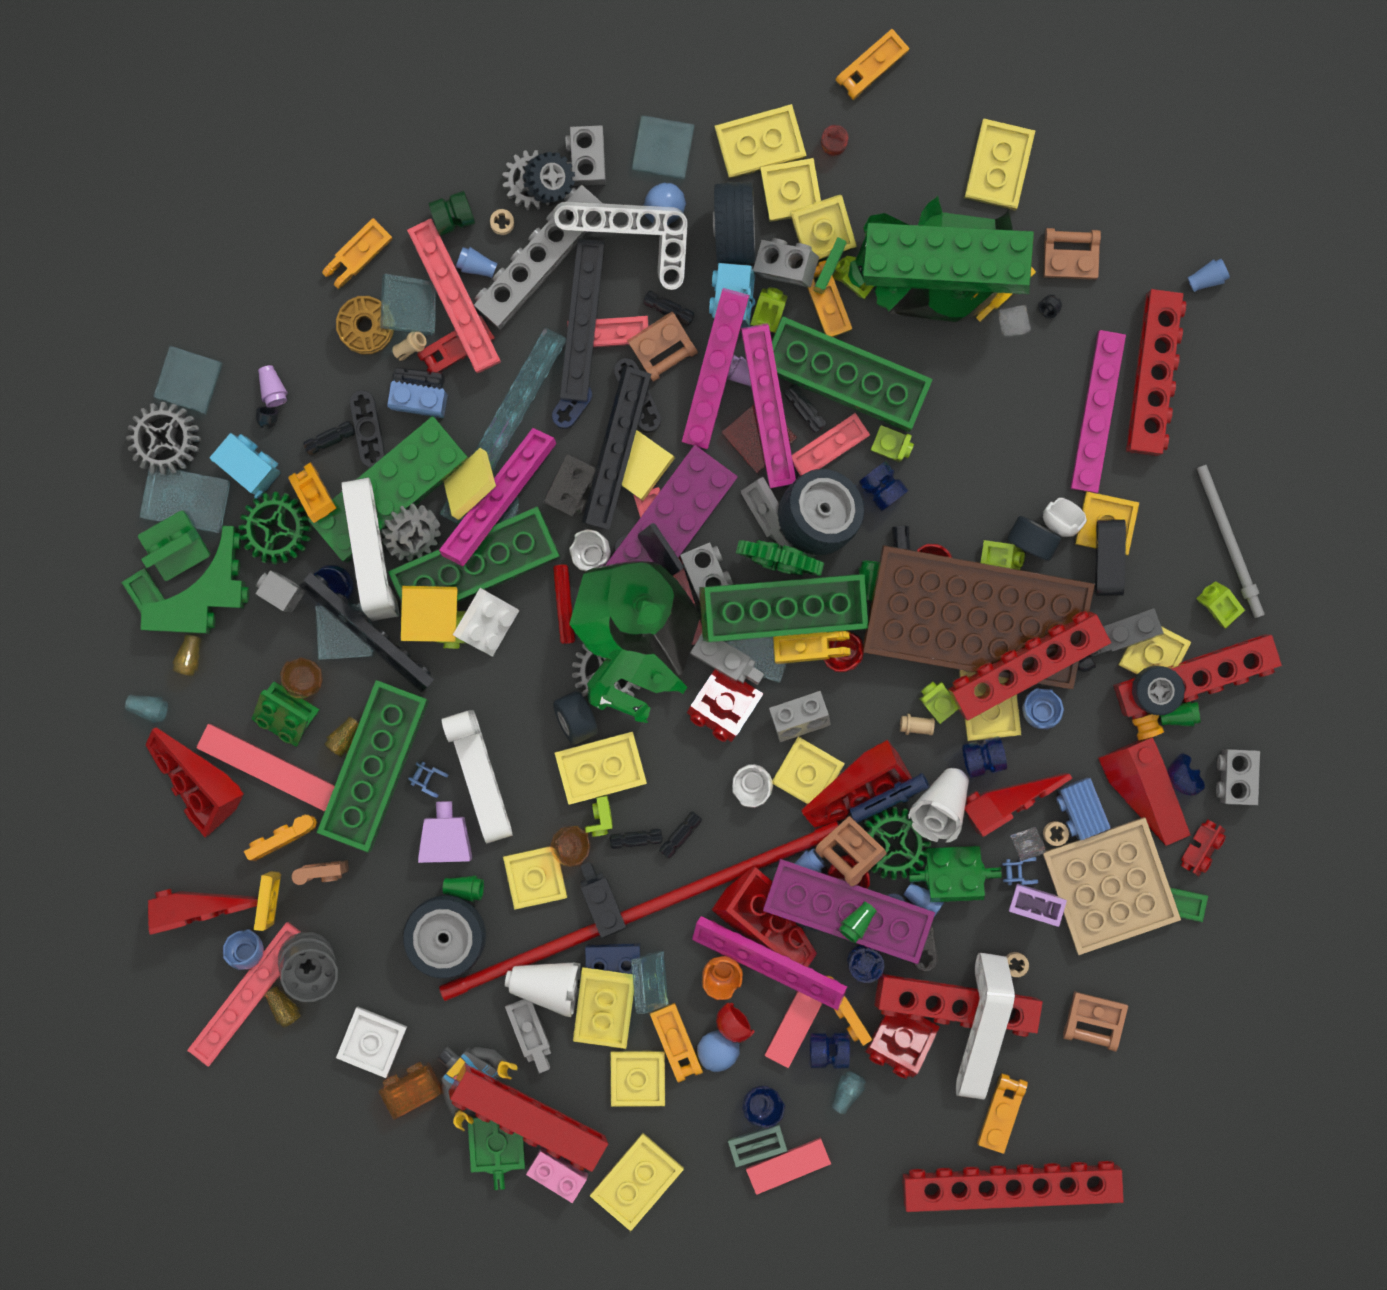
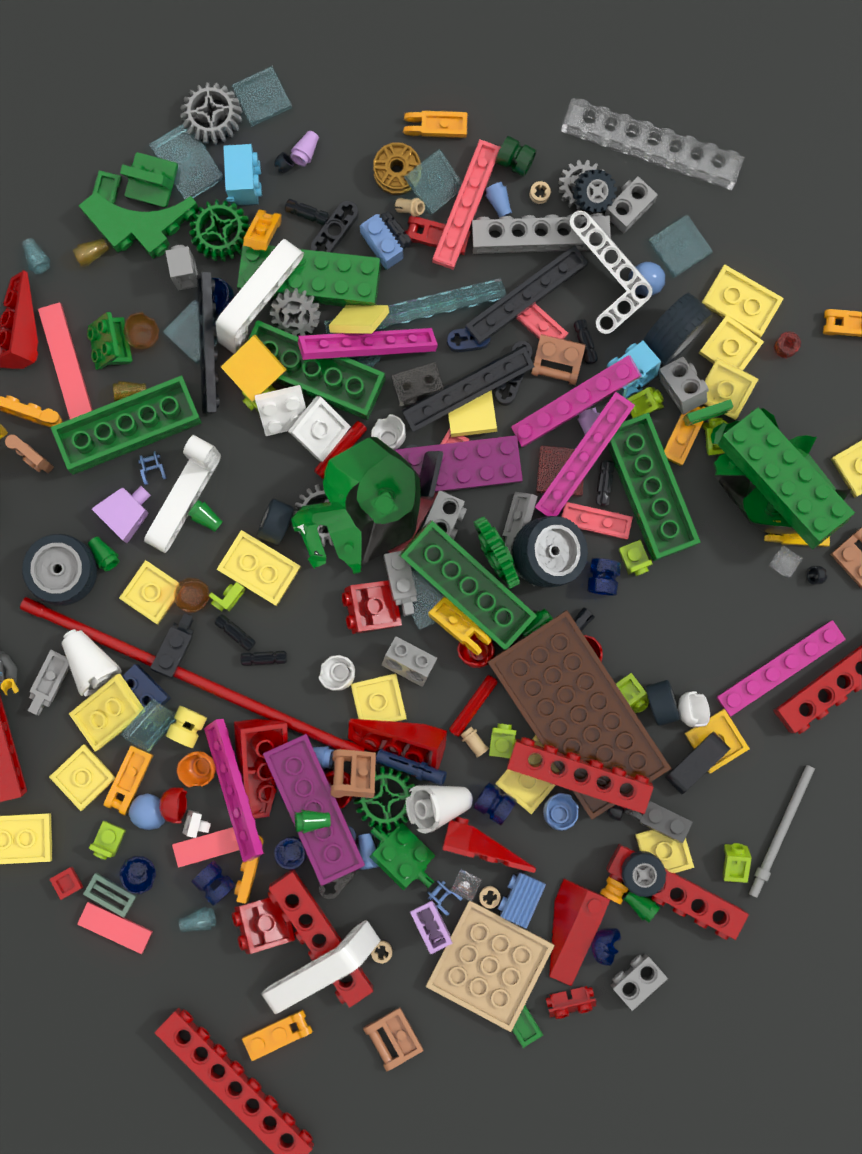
camera: 45 degrees right, 5 degrees down
(512, 772) = (204, 515): none -> green cone
(531, 605) = (319, 428): none -> white plate
(568, 86) = (657, 154): none -> clear brick
(682, 962) = (183, 734): none -> light yellow wheel
(710, 1106) = (107, 840): none -> lime bracket
(714, 1172) = (66, 883): none -> red plate
(765, 1021) = (194, 824): none -> white tile
(886, 697) = (473, 705): none -> red axle

